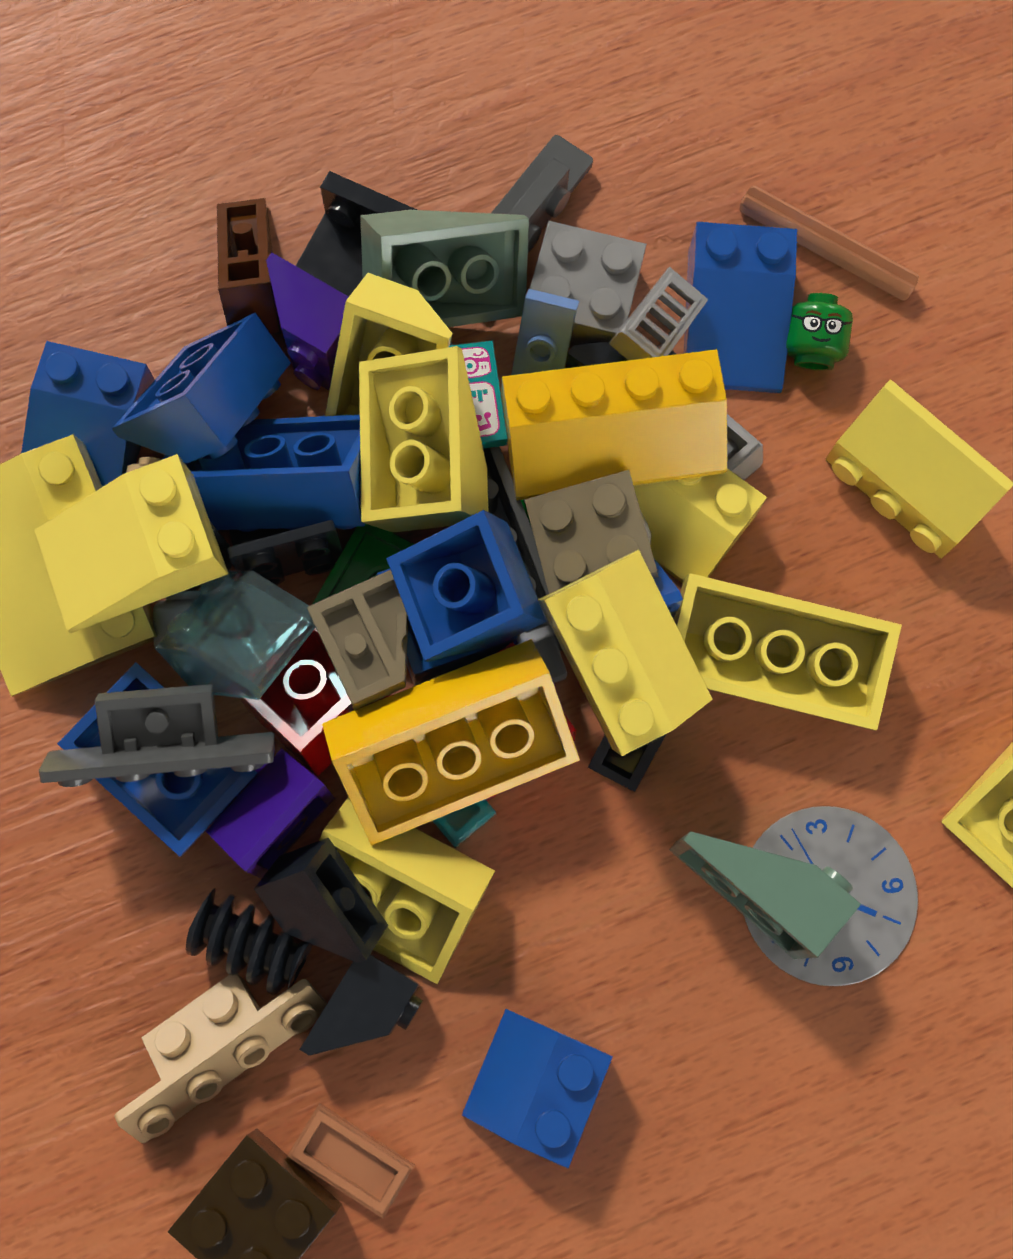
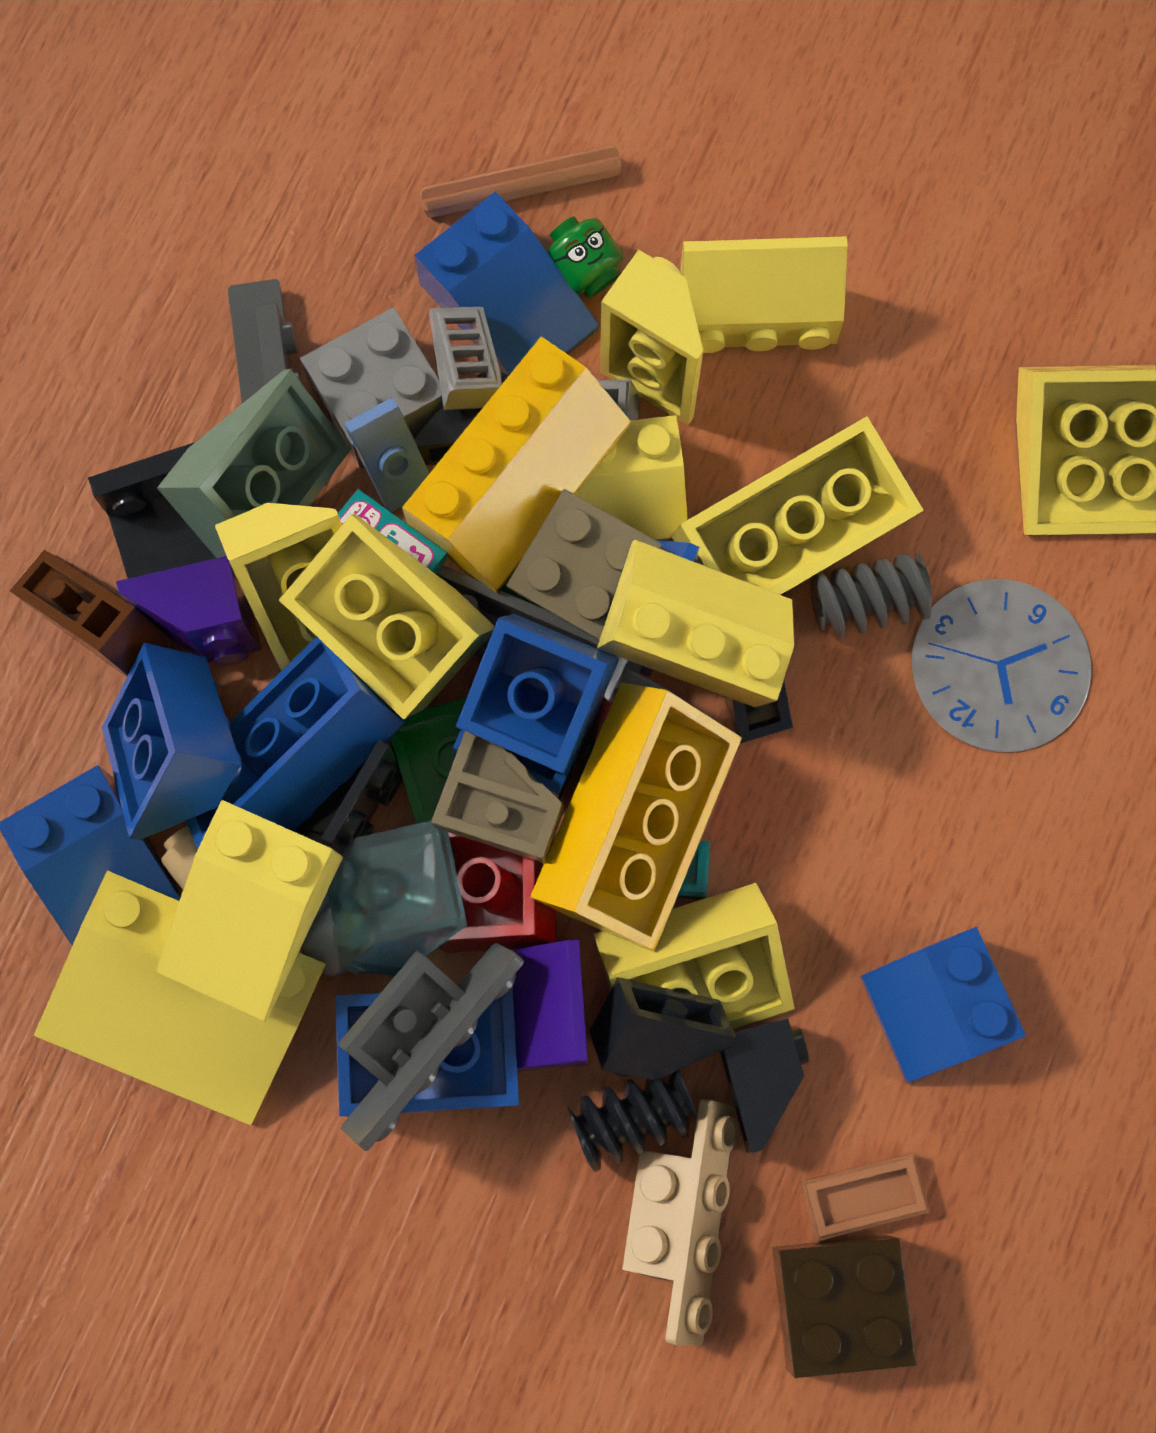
camera: 40 degrees left, 0 degrees up
(780, 895) = (979, 696): sand green slope -> none
(783, 755) = (871, 593): none -> dark grey piece
(801, 420) = (653, 335): none -> light yellow slope

